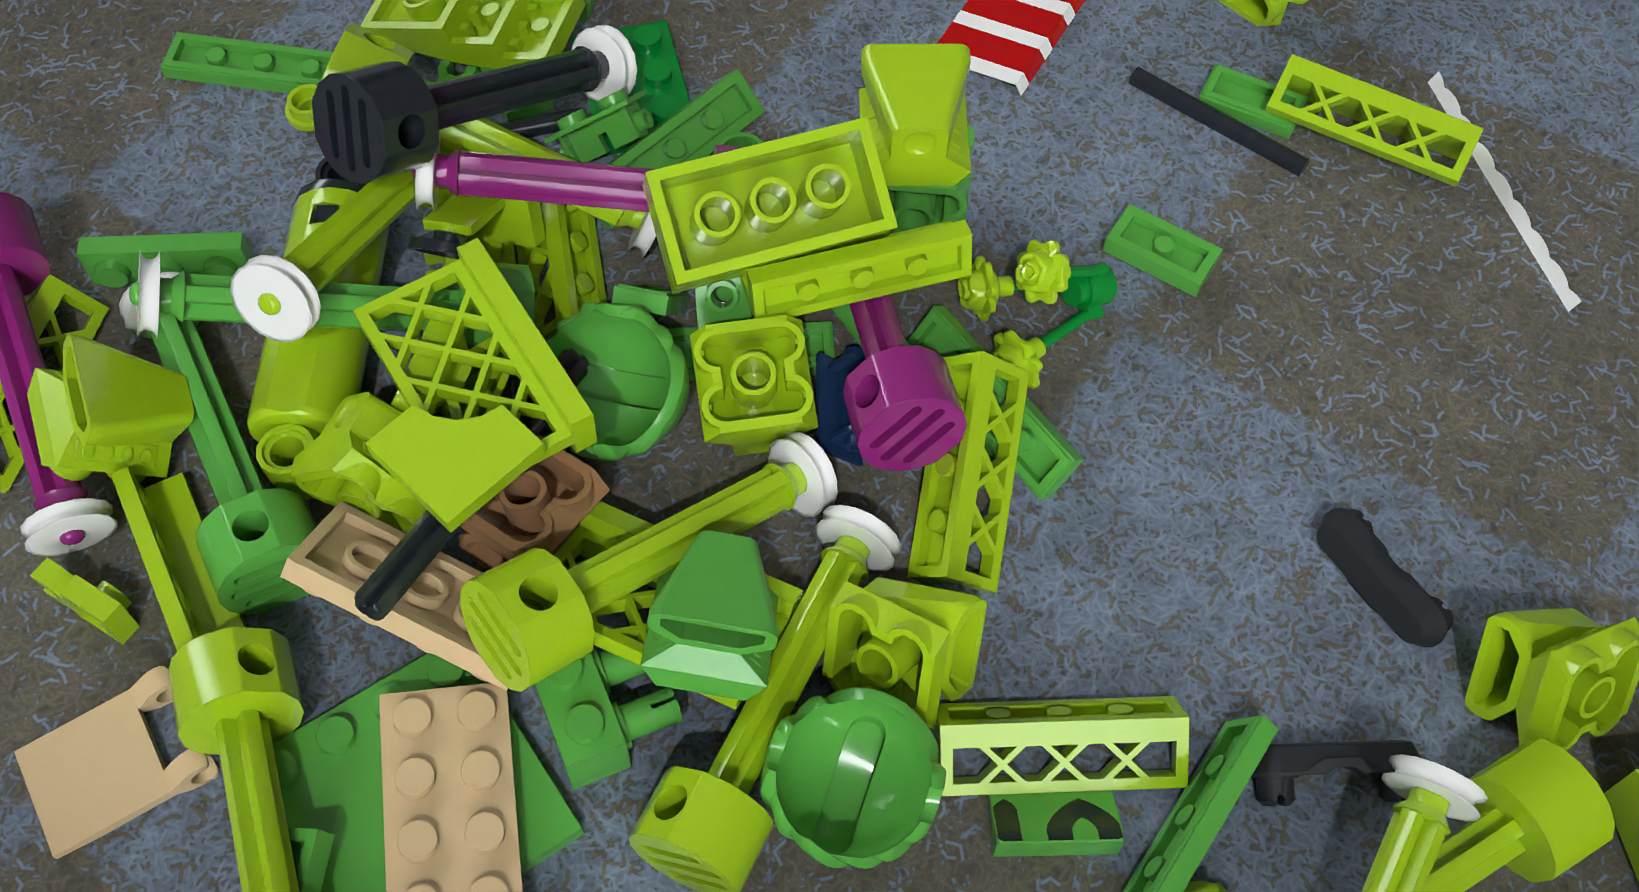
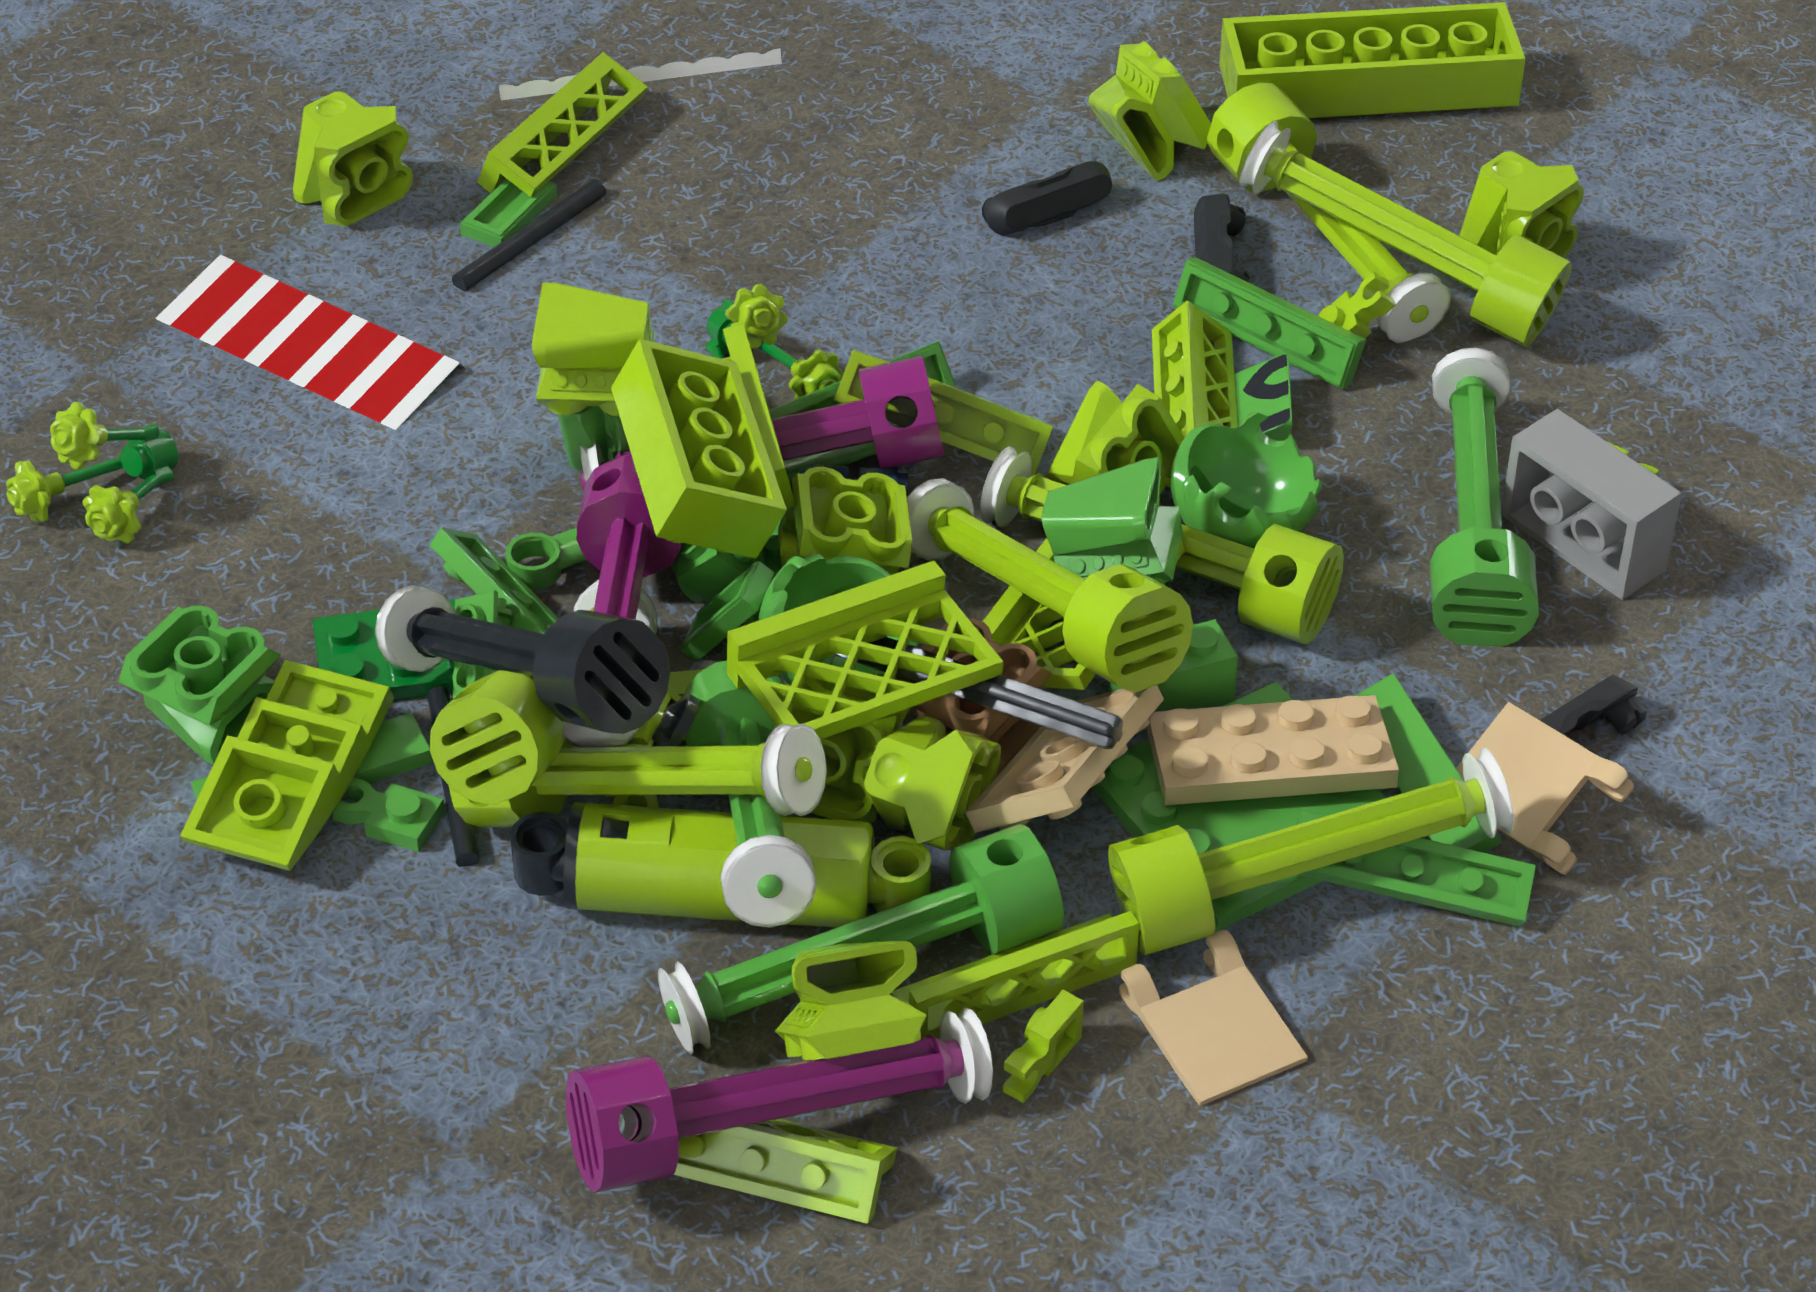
camera: 85 degrees left, 15 degrees down
(115, 259) = (609, 1021): bright green plate -> none
(243, 63) = (302, 983): bright green tile -> none
(299, 107) = (382, 914): lime plate -> none
(455, 463) = (976, 655): lime tile -> none
(1162, 250) = (692, 282): bright green plate -> none

